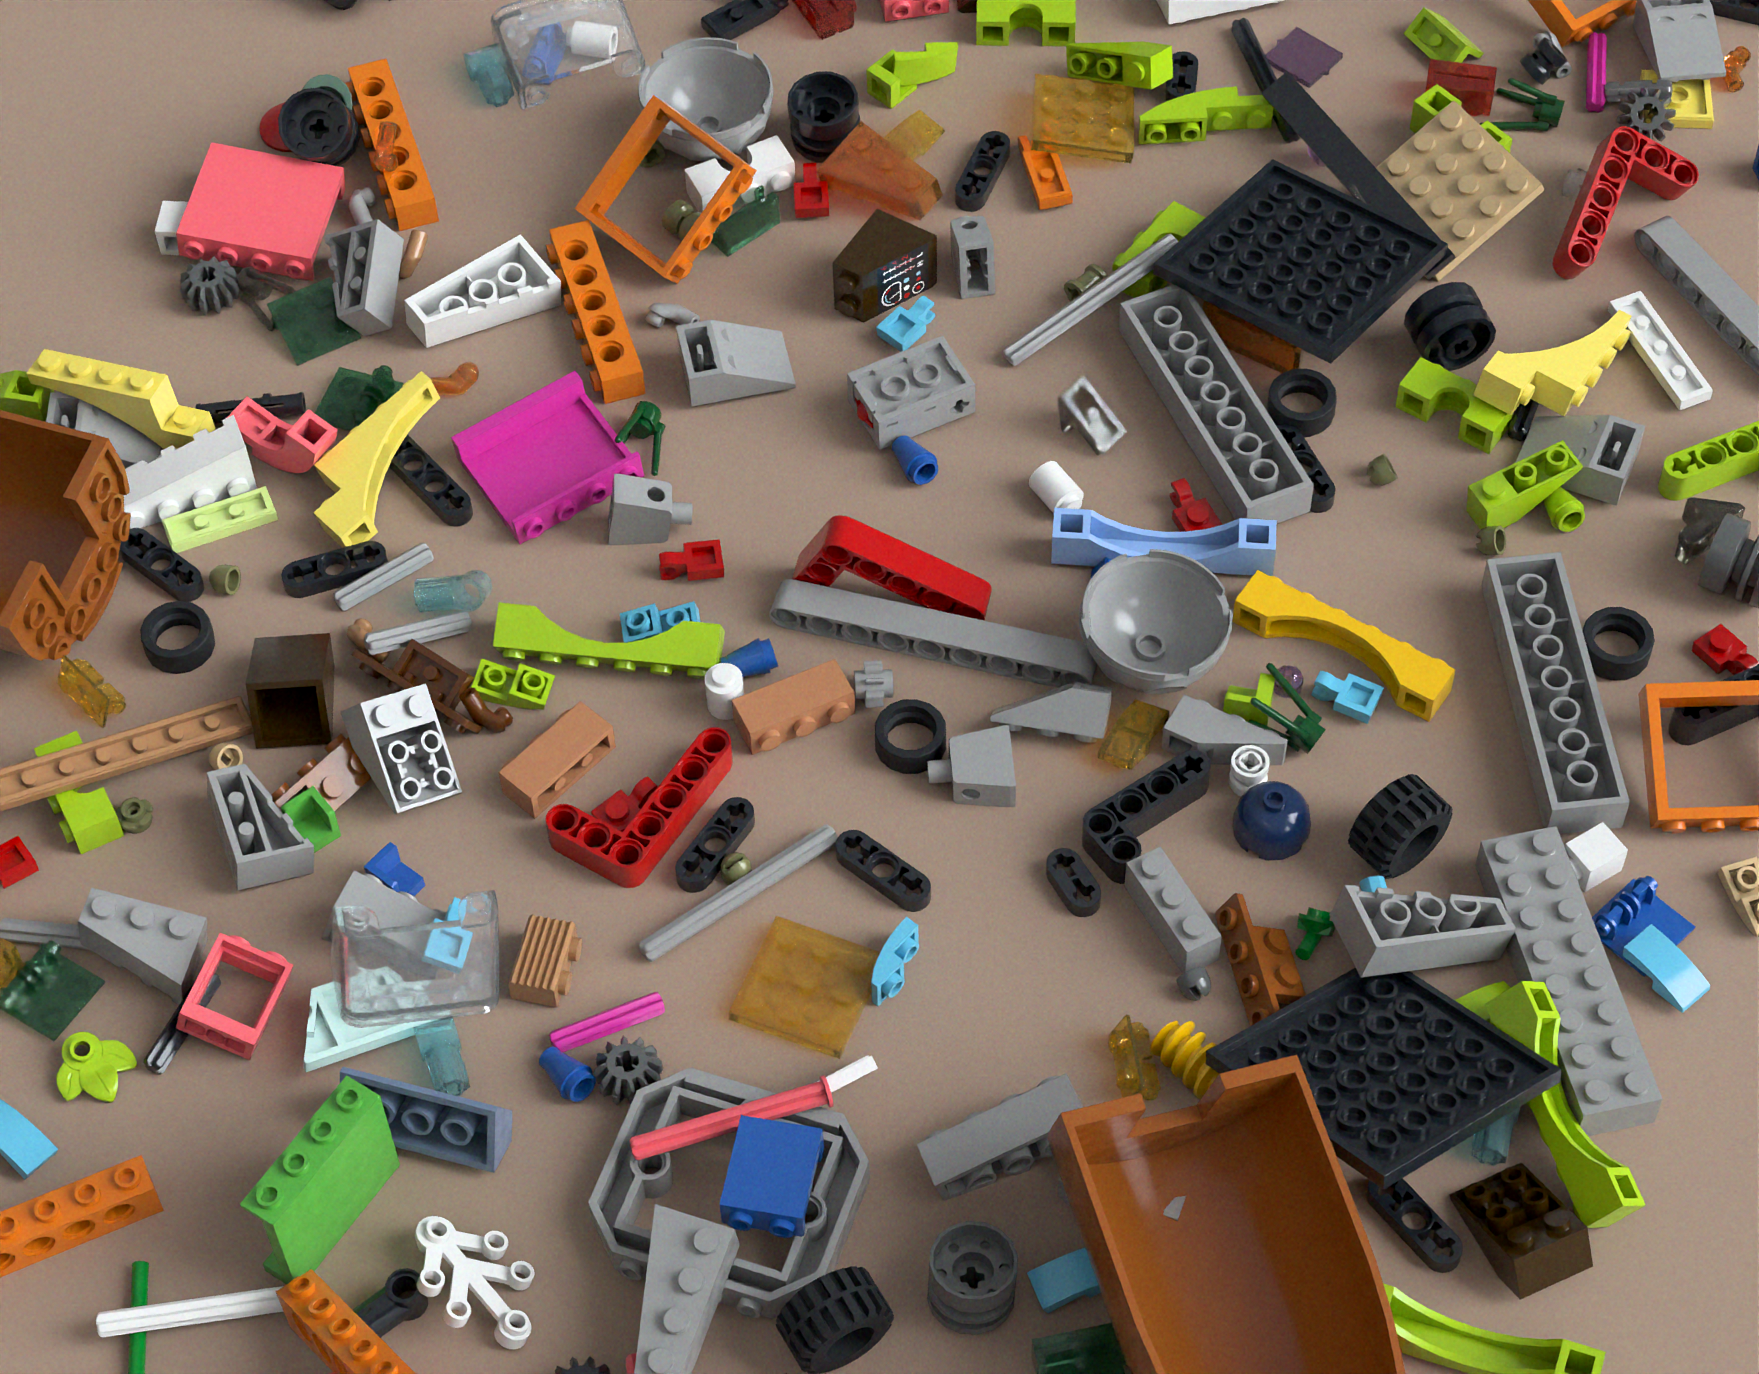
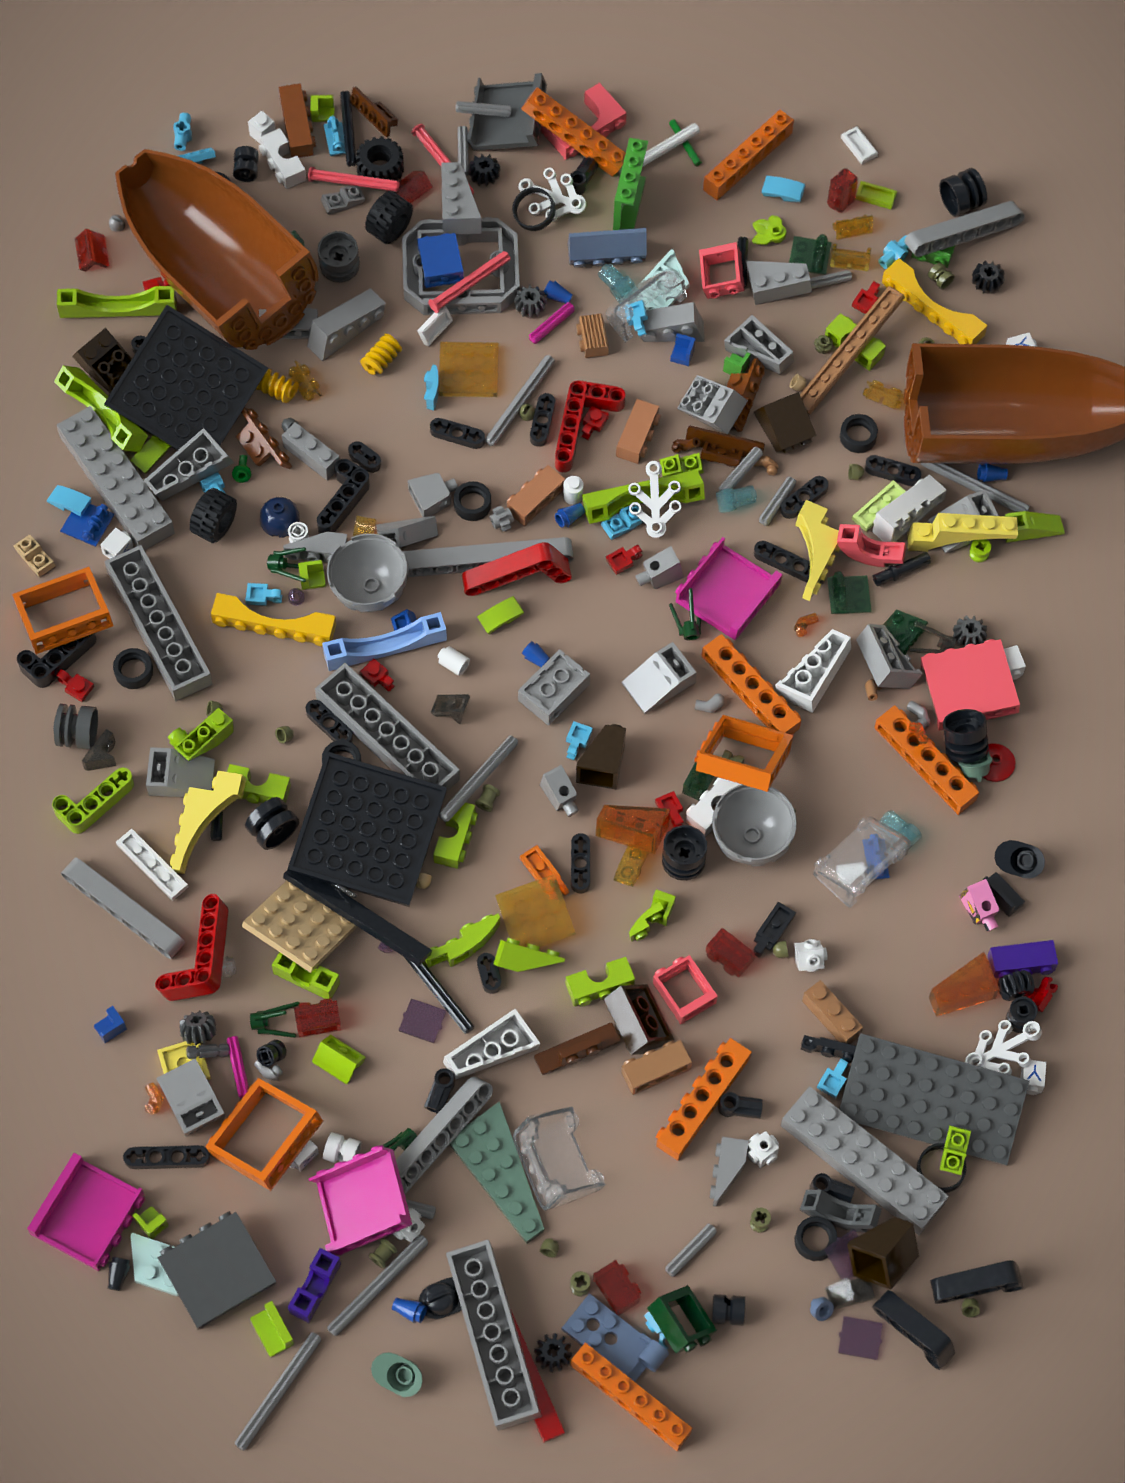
camera: 155 degrees right, 10 degrees up
(510, 1290) = (520, 196): none -> black tyre
(612, 584) = (655, 503): none -> white plant
(947, 532) = (500, 614): none -> lime slope
(964, 1051) = (381, 354): none -> yellow piece

